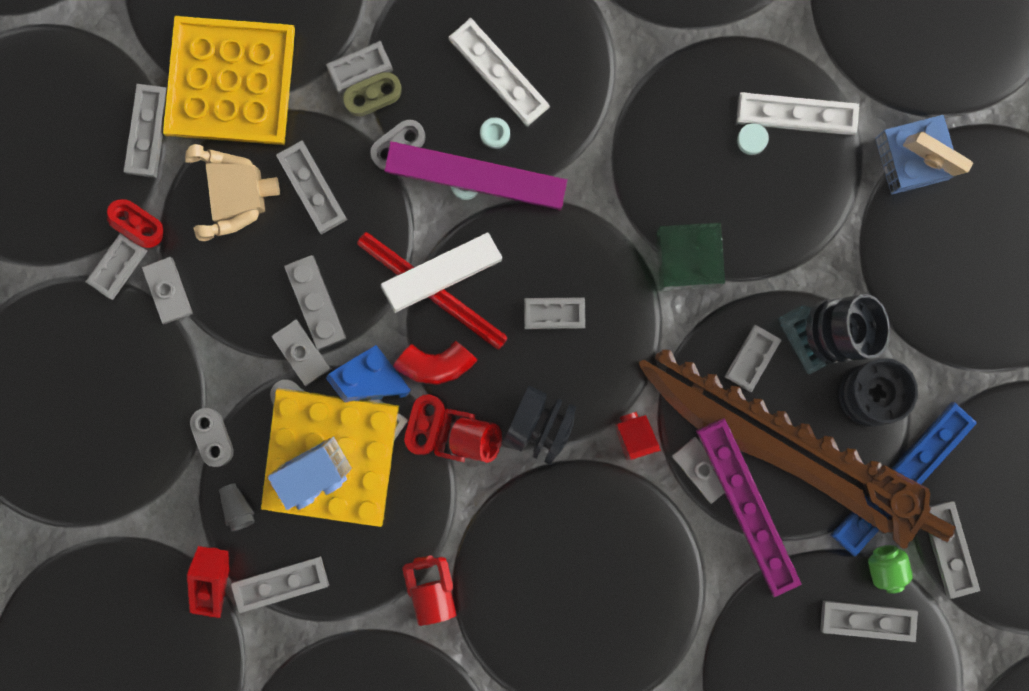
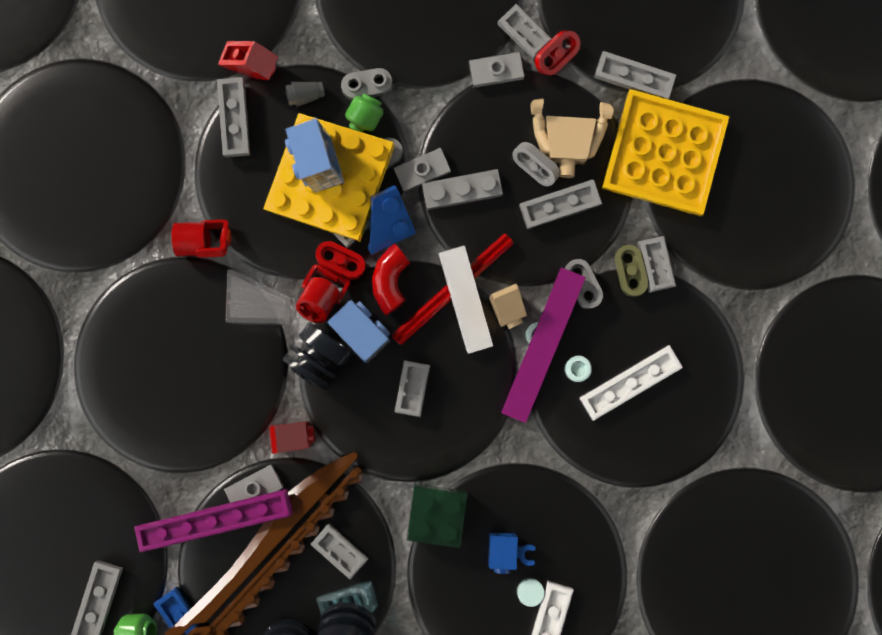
camera: 95 degrees right, 0 degrees up
(247, 431) = (364, 113): none -> bright green head
(270, 223) = (536, 164): none -> light grey plate
(441, 222) = (508, 306): none -> tan slope
(492, 510) = (255, 303): none -> clear slope
(502, 381) = (359, 331): none -> medium blue brick
(713, 174) = (505, 551): none -> blue brick

